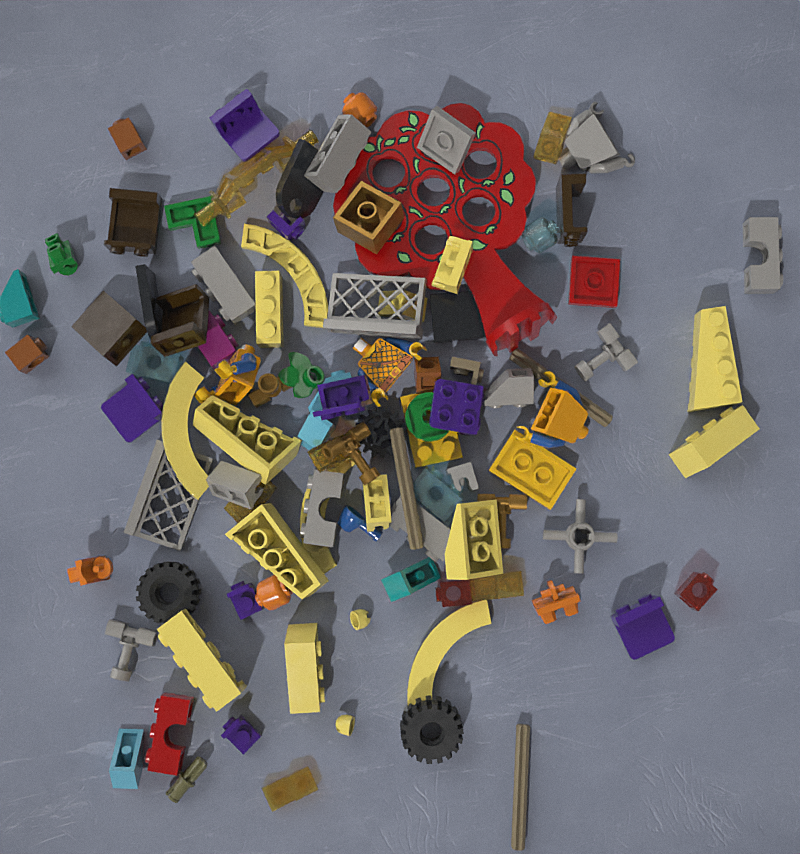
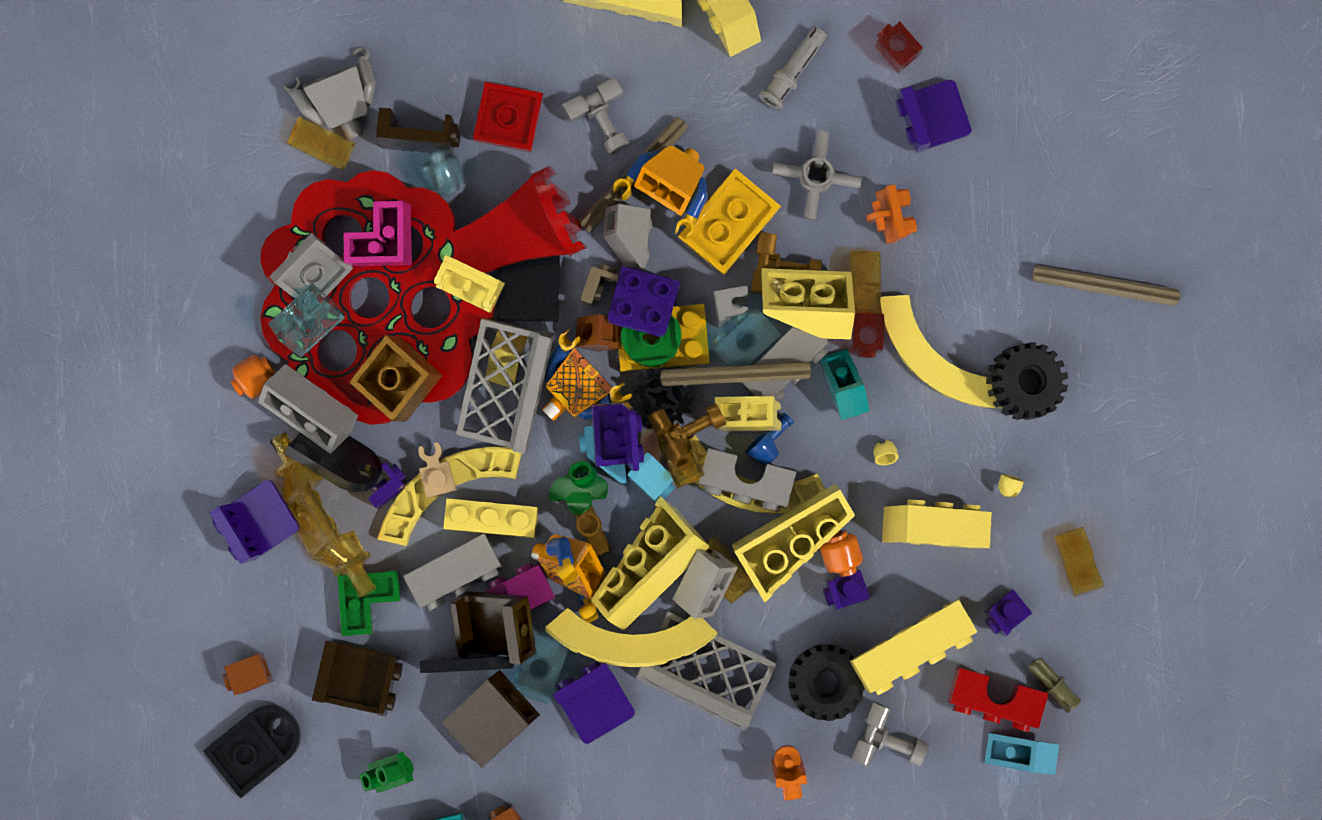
camera: 85 degrees left, 0 degrees up
(71, 152) = (253, 748): none -> black tile
(297, 263) = (437, 476): none -> tan plate
(407, 142) = (306, 320): none -> clear light blue brick
(480, 196) = (388, 242): none -> dark pink brick
(656, 502) = (786, 78): none -> light grey pin

